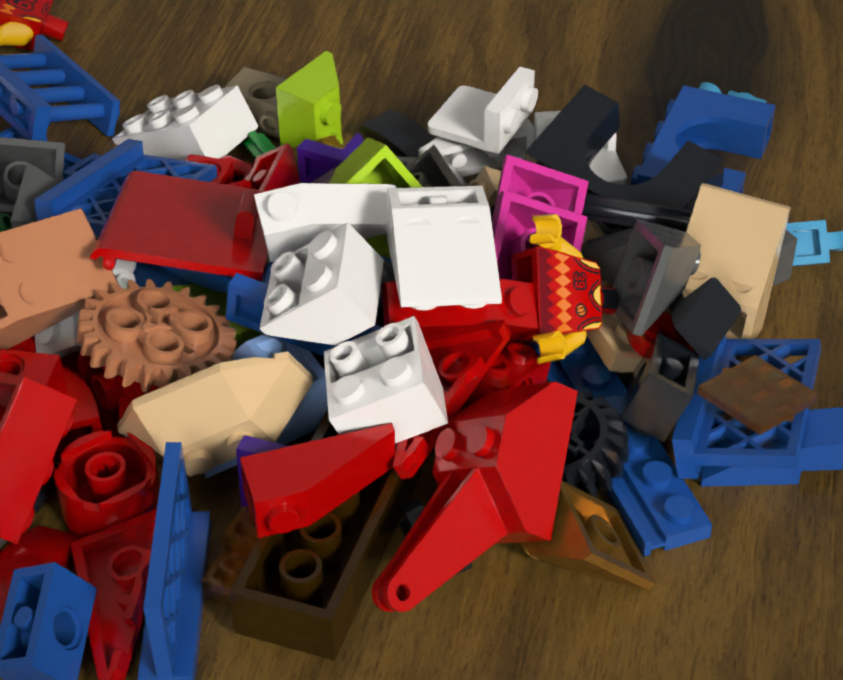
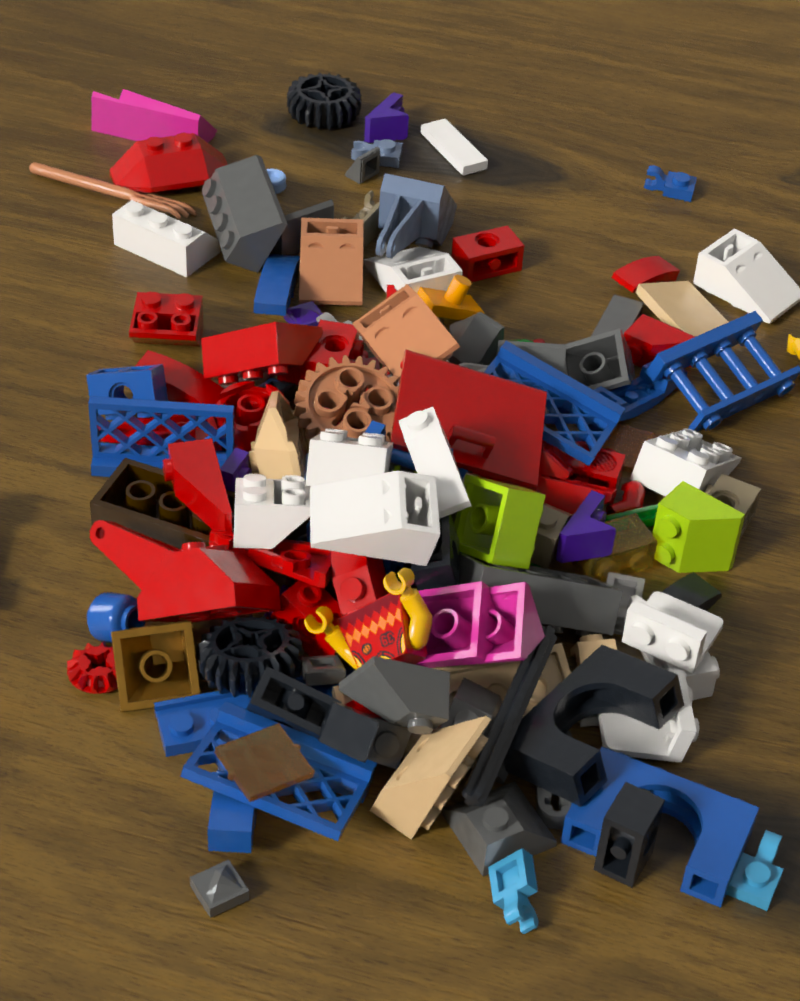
camera: 90 degrees right, 0 degrees up
(514, 595) = (112, 613): none -> blue head
(579, 375) = (322, 670): none -> dark grey tile
(600, 631) = (93, 680): none -> red gear
(747, 146) = (628, 834): none -> black brick

